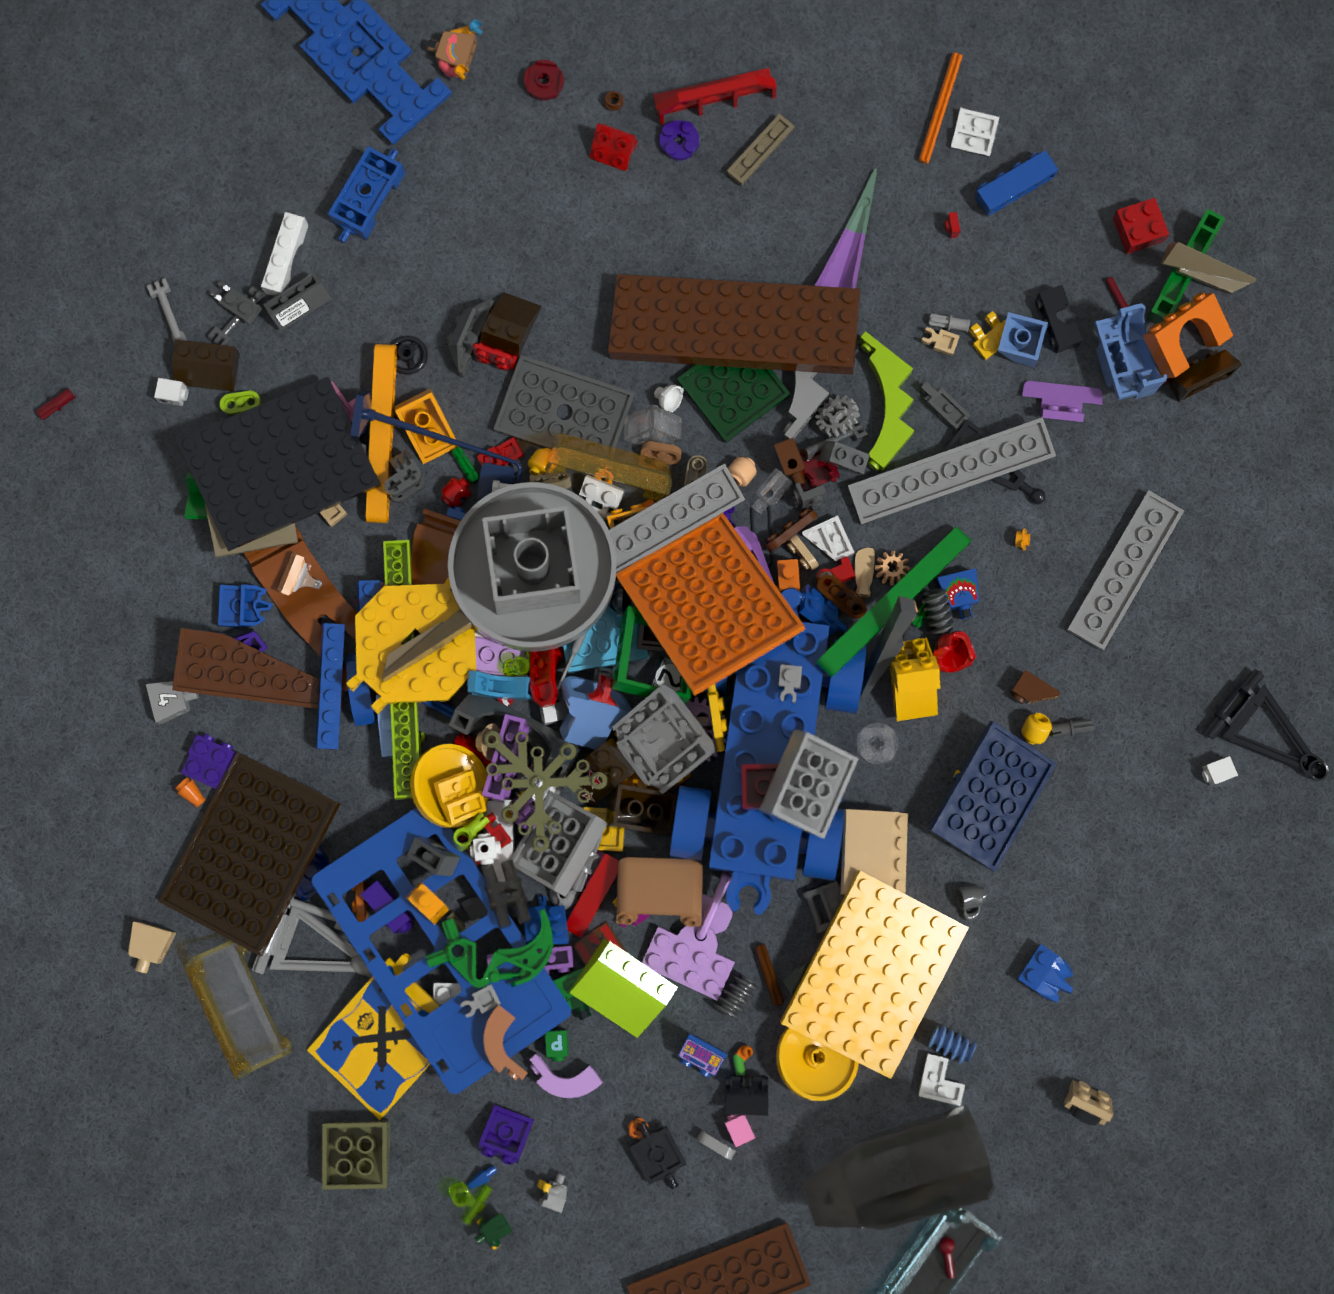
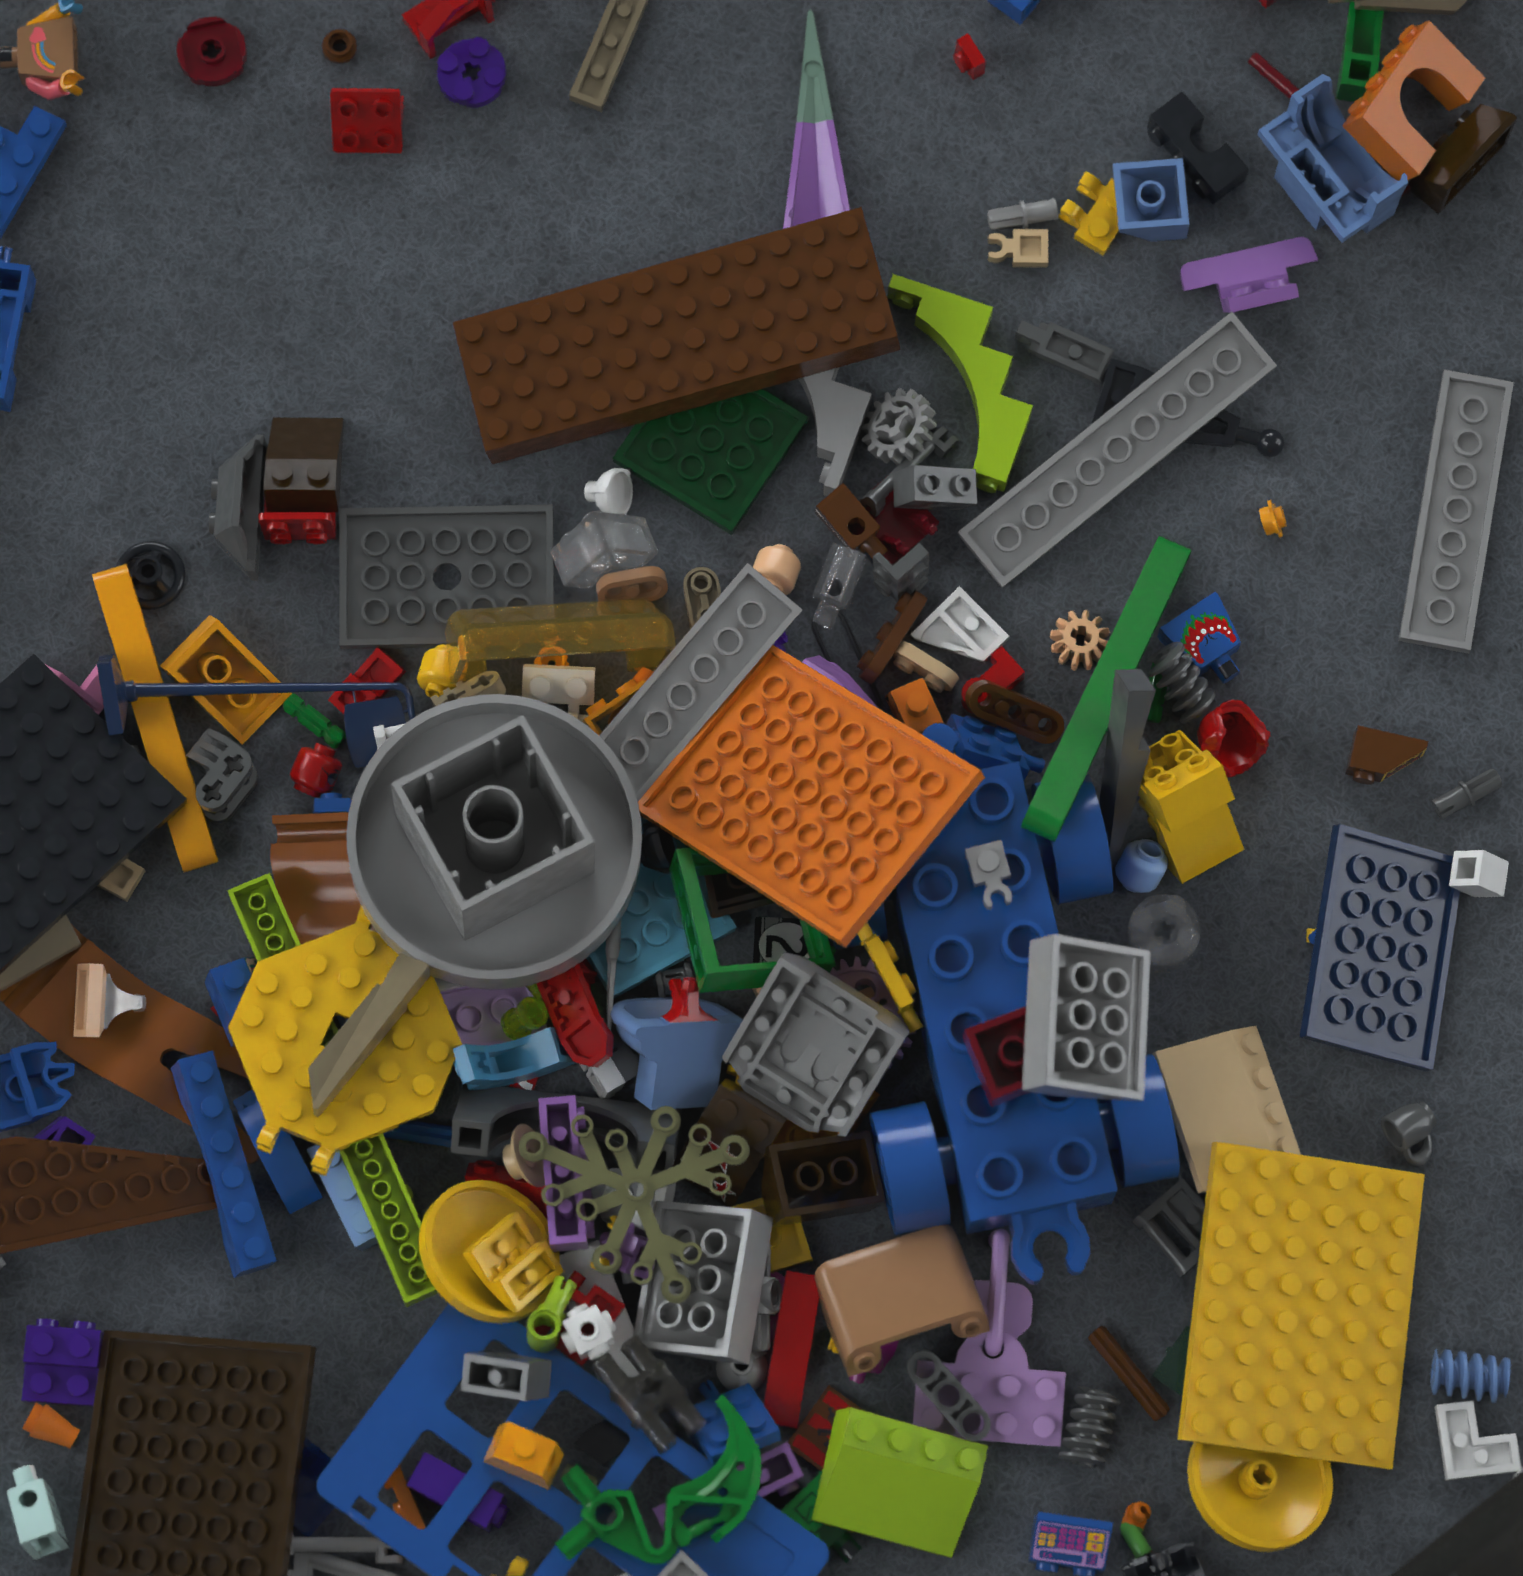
camera: 25 degrees left, 5 degrees down
(165, 836) = (36, 1514): none -> light aqua torso
(666, 963) = (957, 1412): none -> dark grey beam
(864, 571) = (1036, 661): tan piece -> none
(878, 703) = (1141, 866): none -> light blue head
(1036, 728) = (1411, 814): yellow head -> none
(1061, 774) = (1478, 873): none -> white brick

